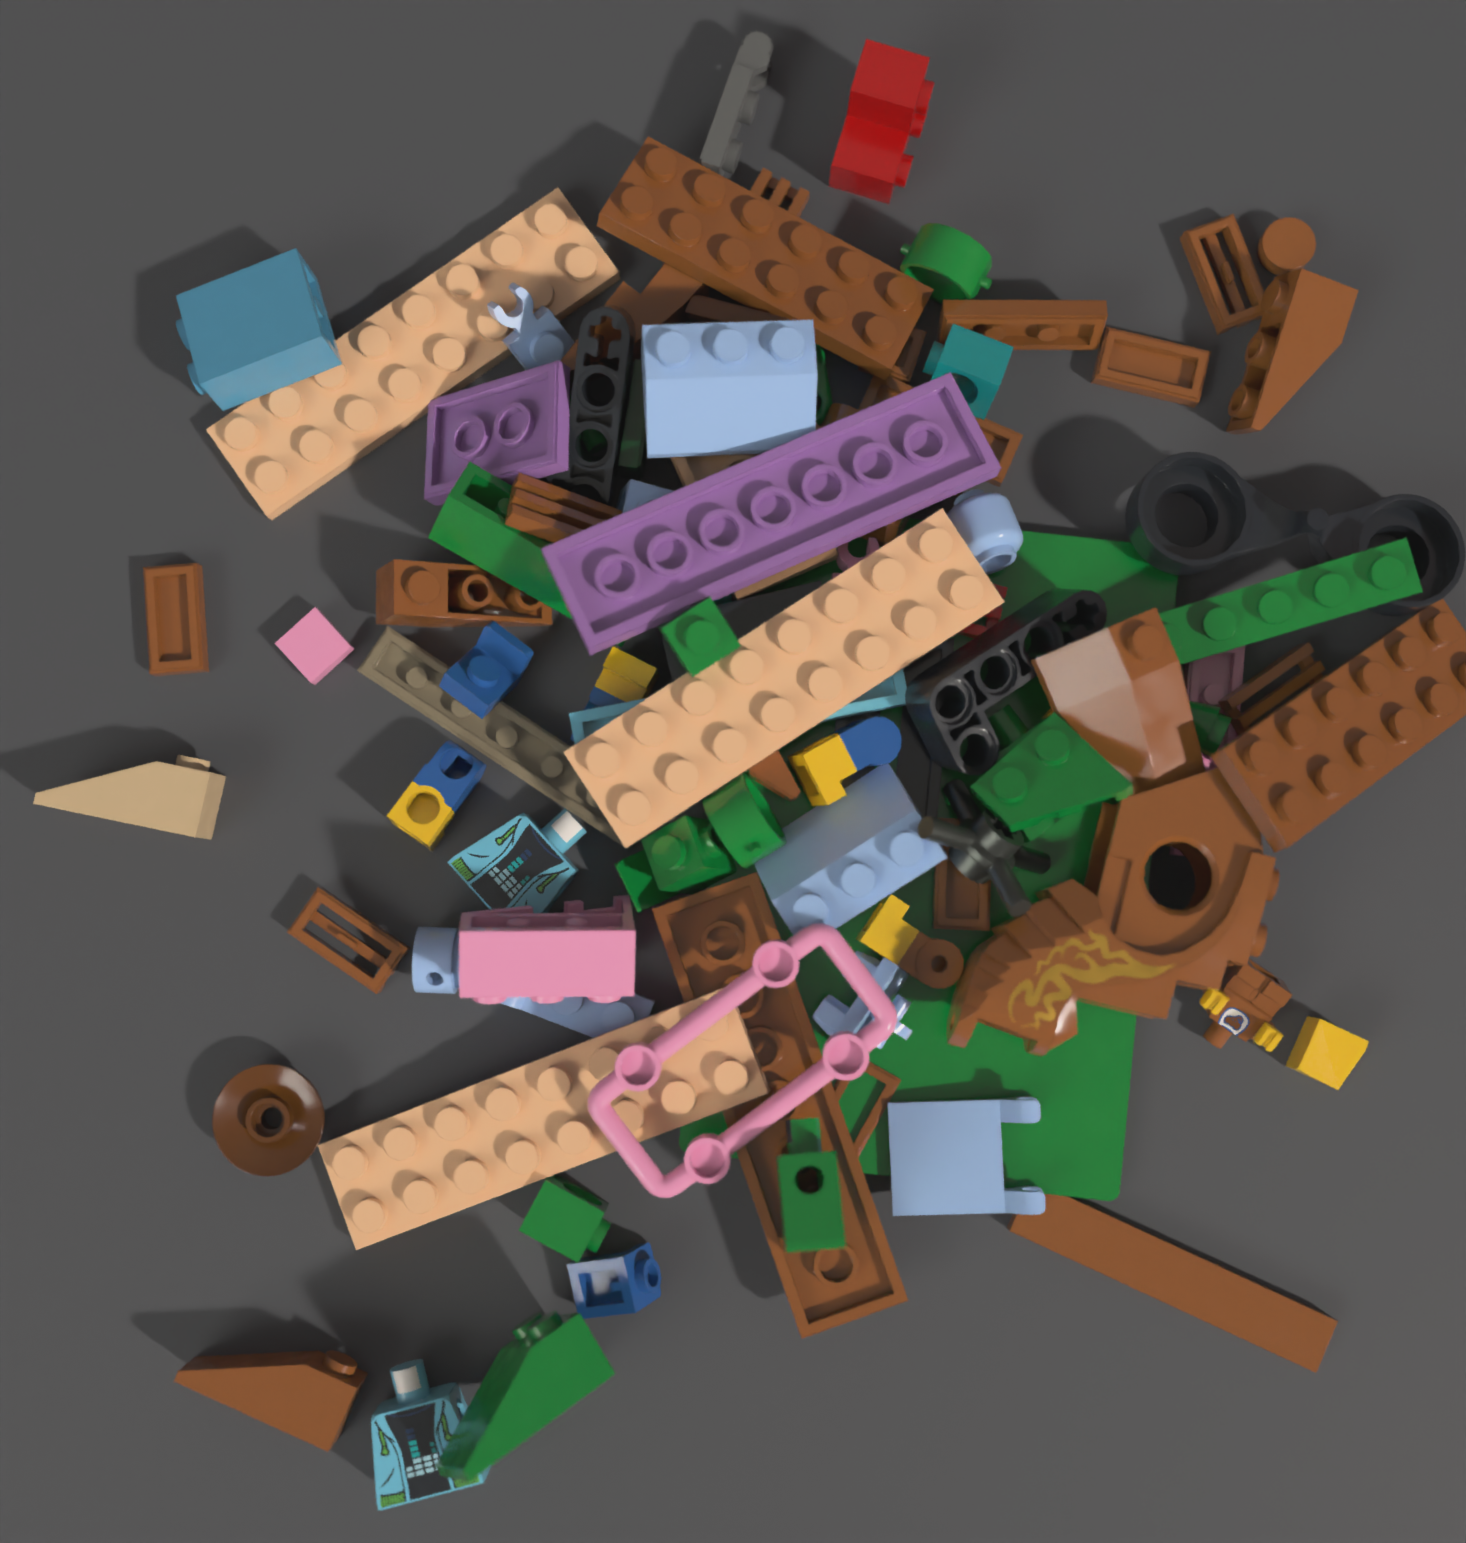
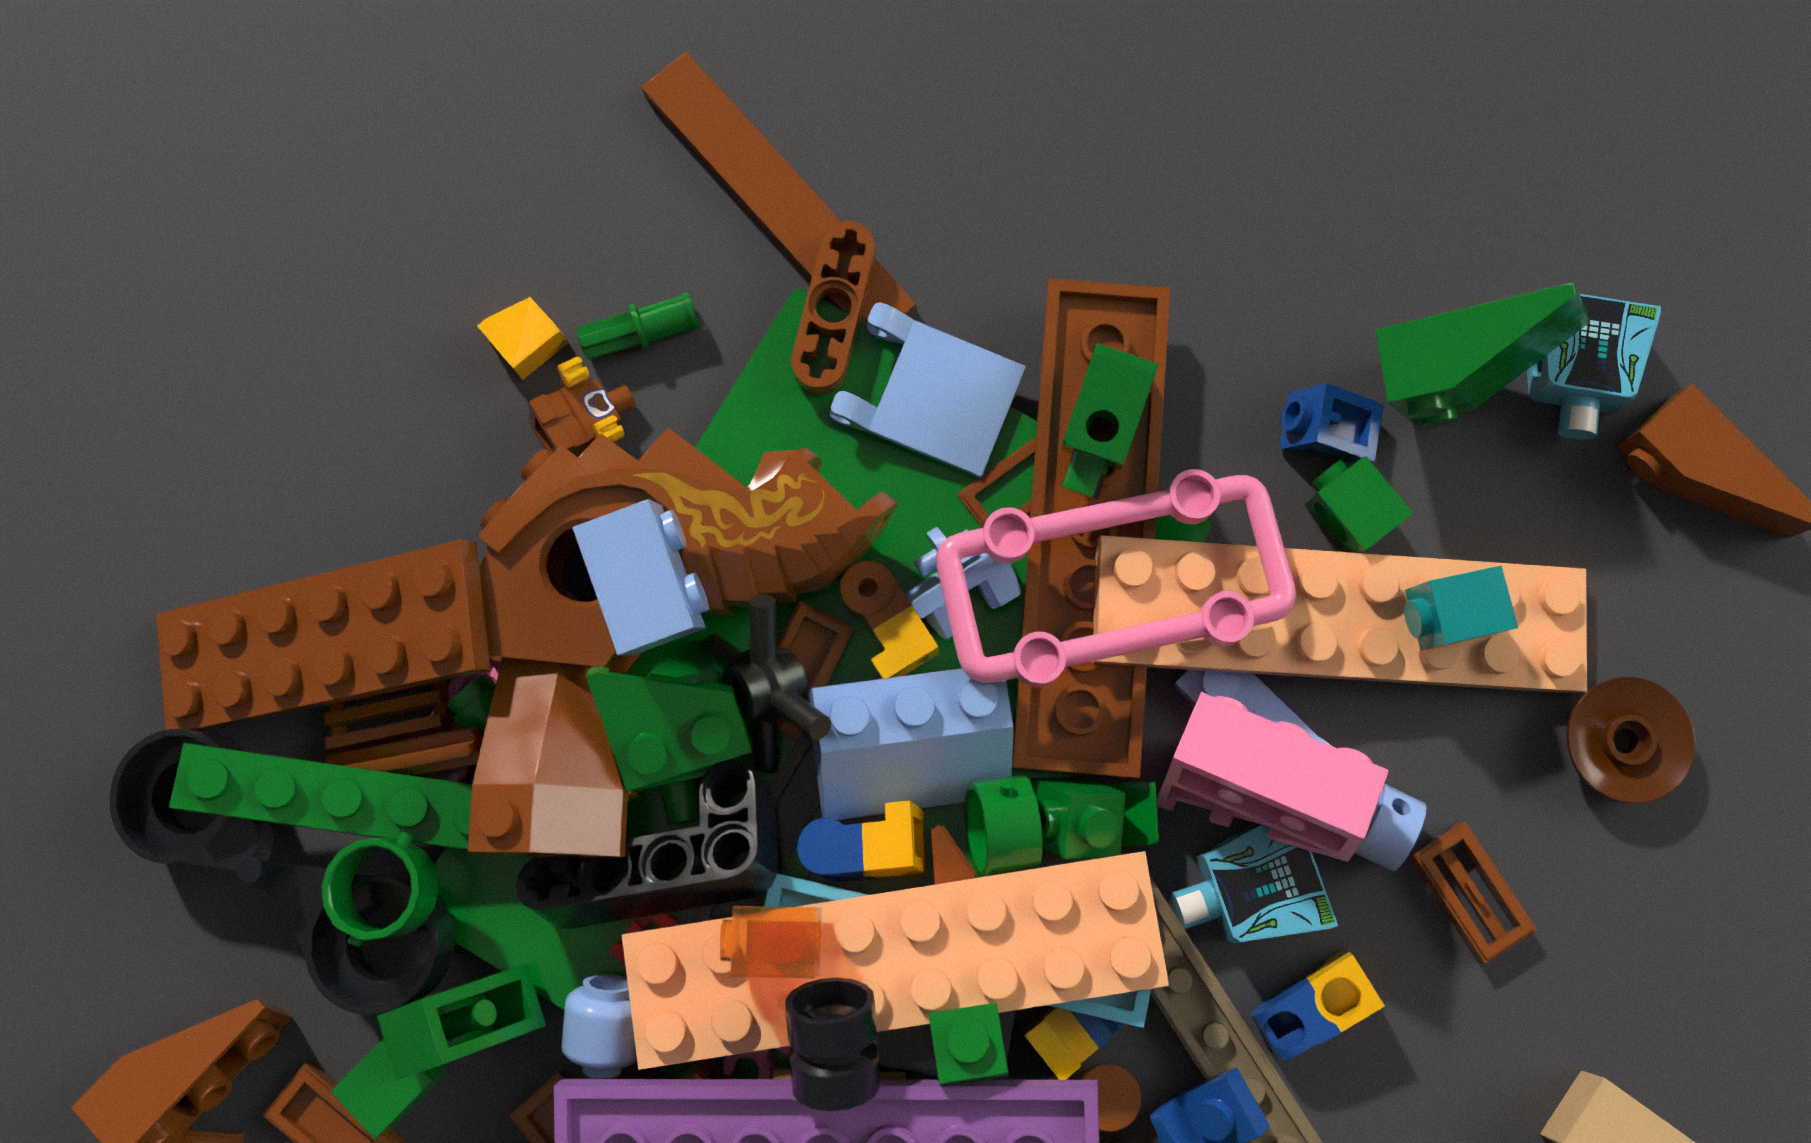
camera: 155 degrees left, 5 degrees down
(450, 1162) = (1459, 608): none -> teal brick
(567, 655) = (1117, 1095): none -> dark orange tile
(804, 591) = (834, 1043): none -> black wheel
(885, 645) = (772, 942): none -> clear orange brick
(1094, 483) = (460, 1021): none -> green brick
(1100, 1232) = (828, 262): none -> dark orange beam
(1125, 419) = (377, 1097): none -> green brick
(1127, 881) = (641, 576): none -> light blue brick
(1234, 1104) = (637, 327): none -> green axle
(1237, 530) = (338, 890): none -> green piece
(1237, 667) = (416, 754): none -> dark orange axle

